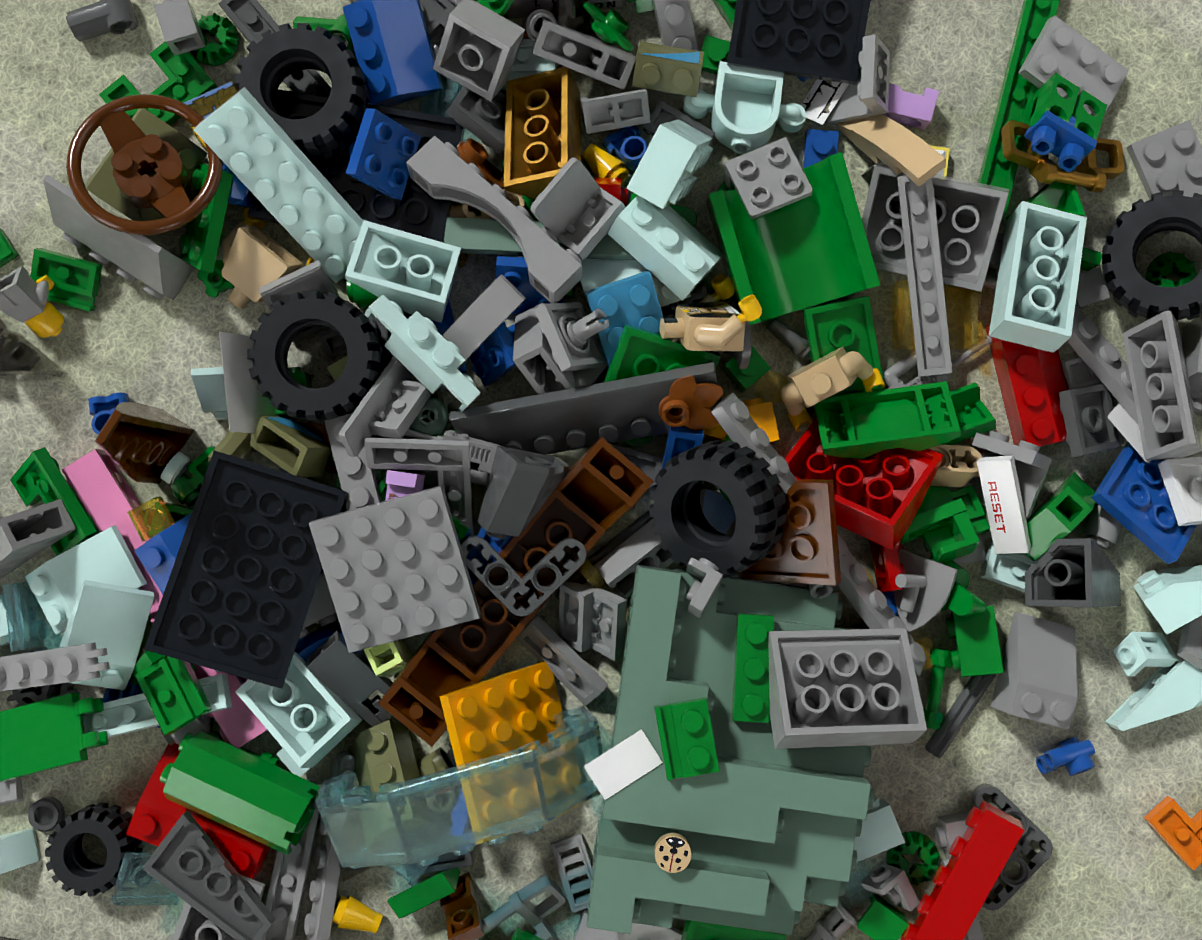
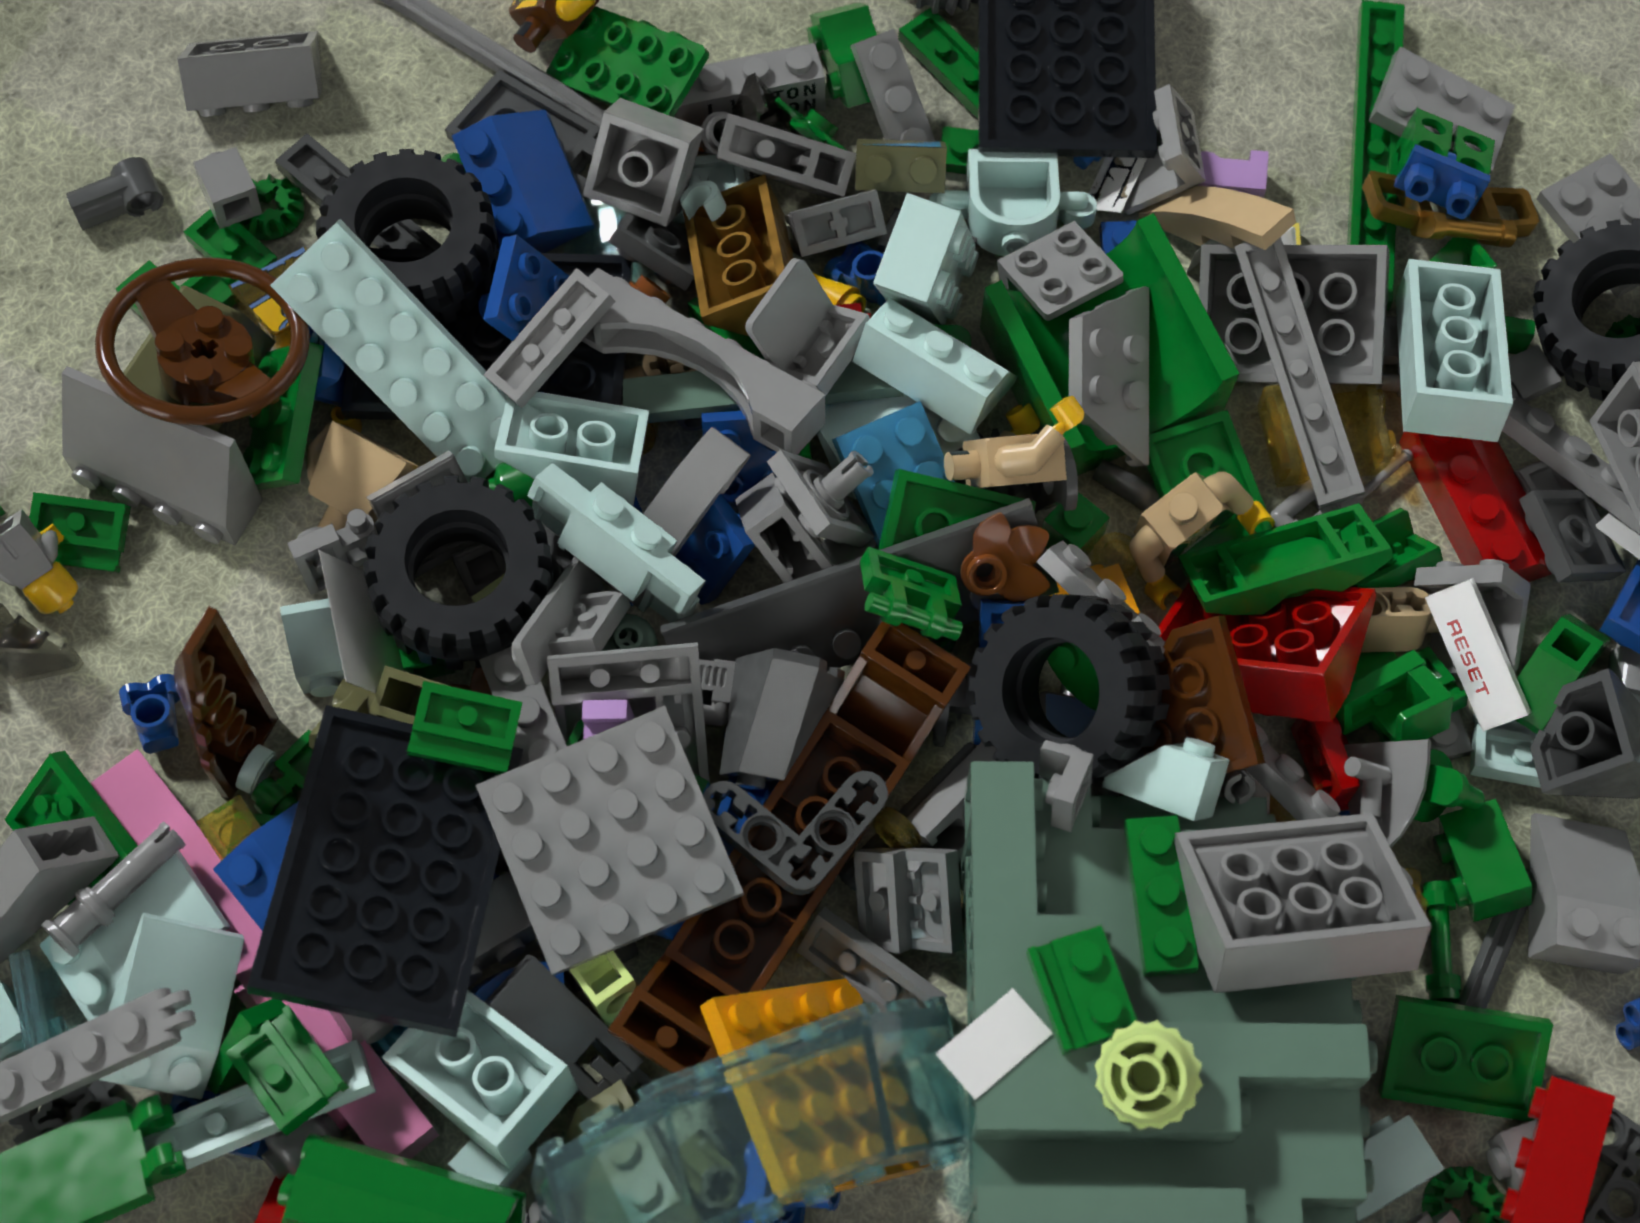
camera: 10 degrees left, 20 degrees down
(57, 565) = (96, 905): none -> light grey pin
(214, 288) = (300, 518): green plate -> none
(235, 323) = (345, 544): none -> light grey plate
(306, 478) = (464, 728): none -> green plate
(392, 191) = (549, 338): none -> light grey plate
(519, 75) = (705, 194): none -> light aqua piece
(622, 415) = (911, 594): none -> green plate
(672, 852) = (1090, 1161): tan tile -> none
(719, 804) = (1148, 1075): none -> yellowish green piece
(777, 583) = (1175, 778): none -> light aqua slope
(791, 263) = (1113, 372): none -> light grey wing
(936, 772) = (1464, 1057): none -> green plate

